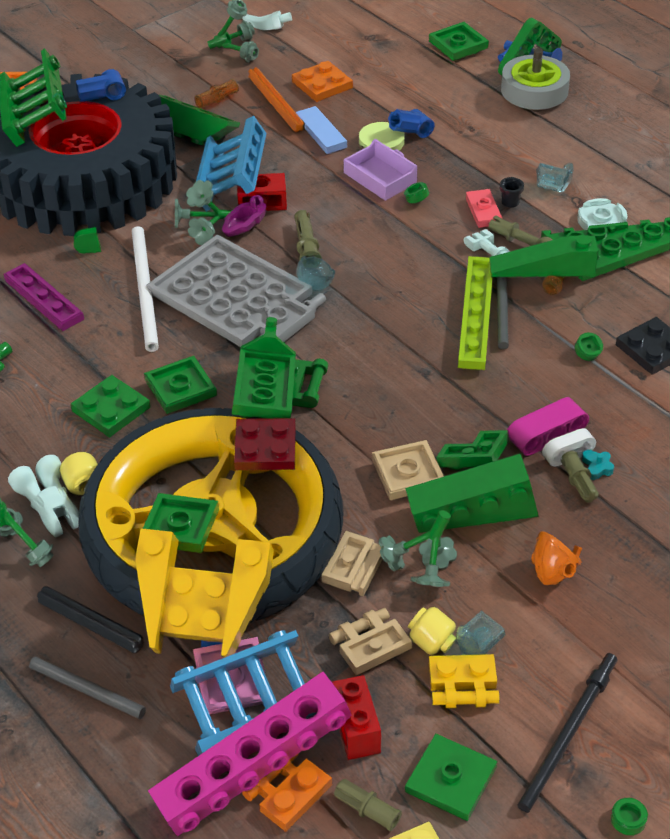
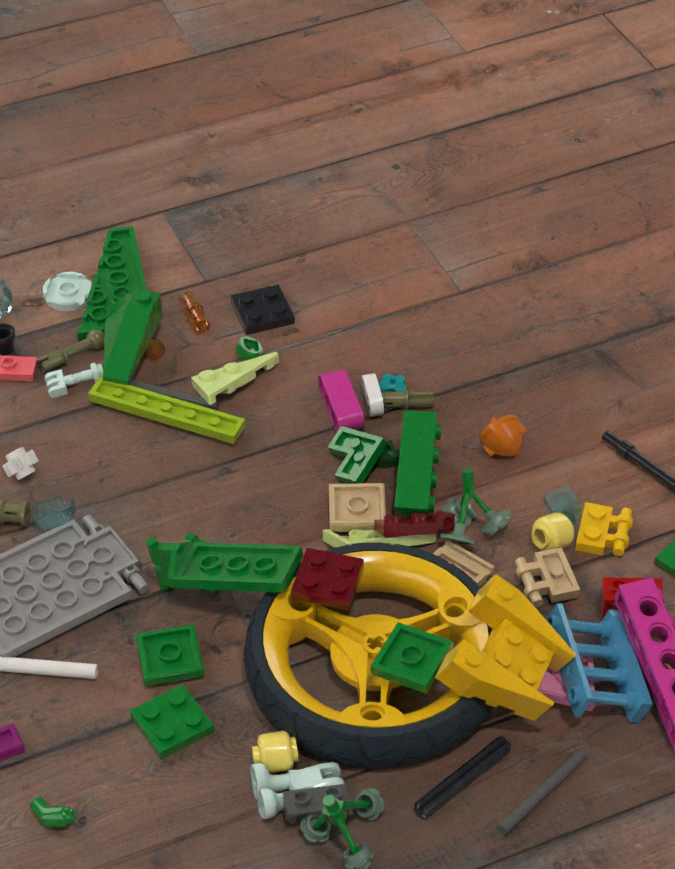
camera: 75 degrees left, 0 degrees up
(28, 511) = (309, 801): none -> dark grey hinge
(364, 239) = (20, 463): none -> white gear
(366, 489) = (371, 536): none -> yellowish green wing
(390, 509) = (416, 525): none -> dark red hinge
(542, 342) = (231, 376): none -> yellowish green wing
(617, 298) = (194, 312): none -> clear orange pin

